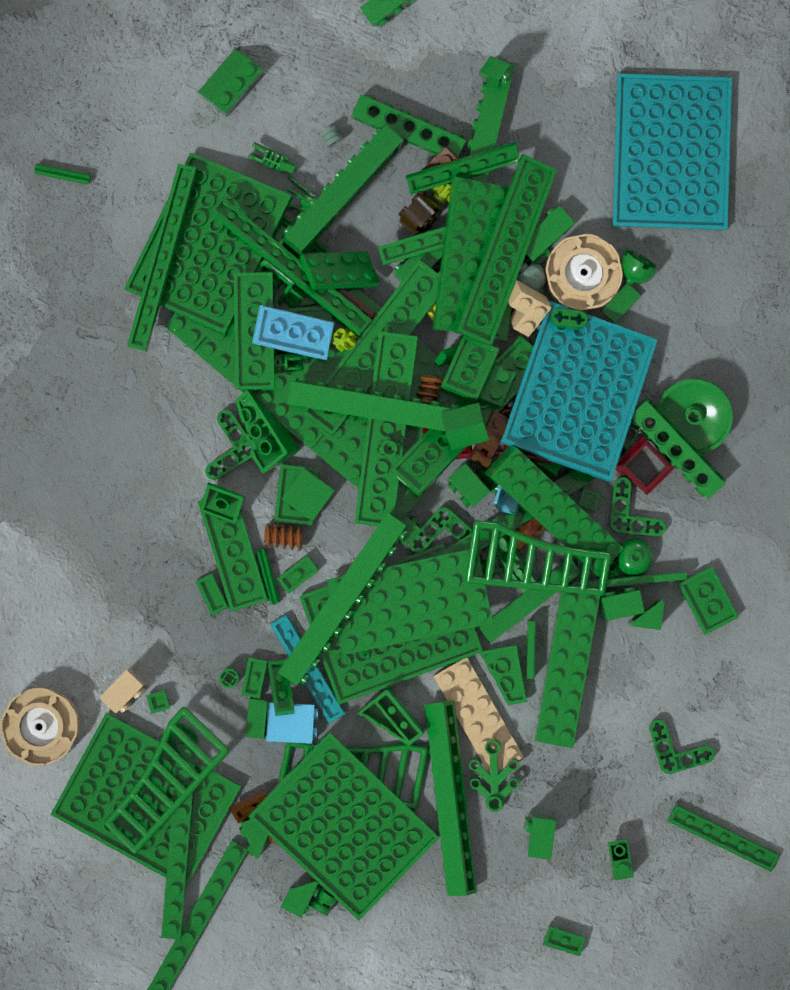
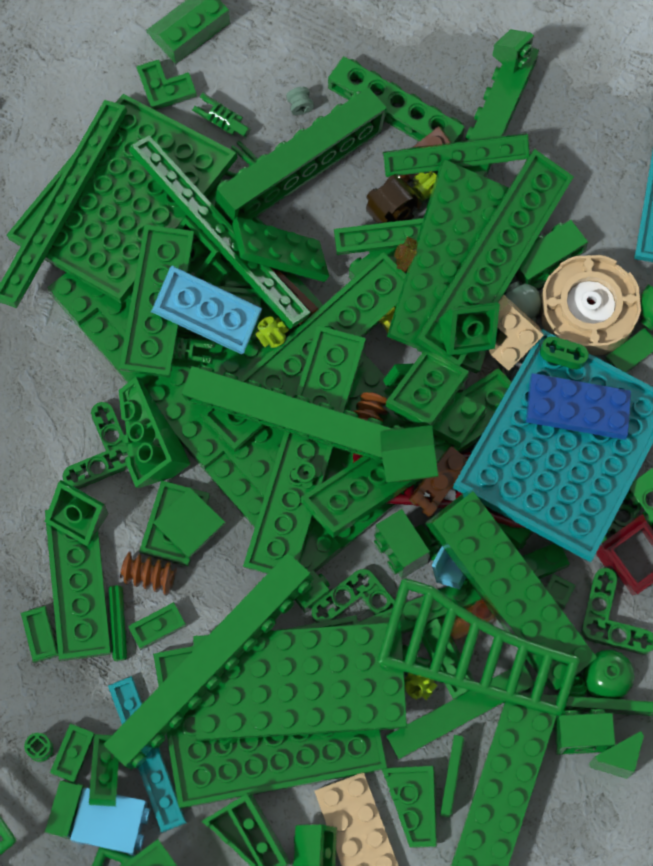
camera: 15 degrees right, 15 degrees down
(219, 144) = (163, 91): none -> green plate
(436, 259) = (405, 253): none -> clear orange plate
(495, 317) = (470, 328): none -> green slope
(497, 591) = (419, 686): none -> lime gear
(585, 361) = (578, 406): none -> blue plate

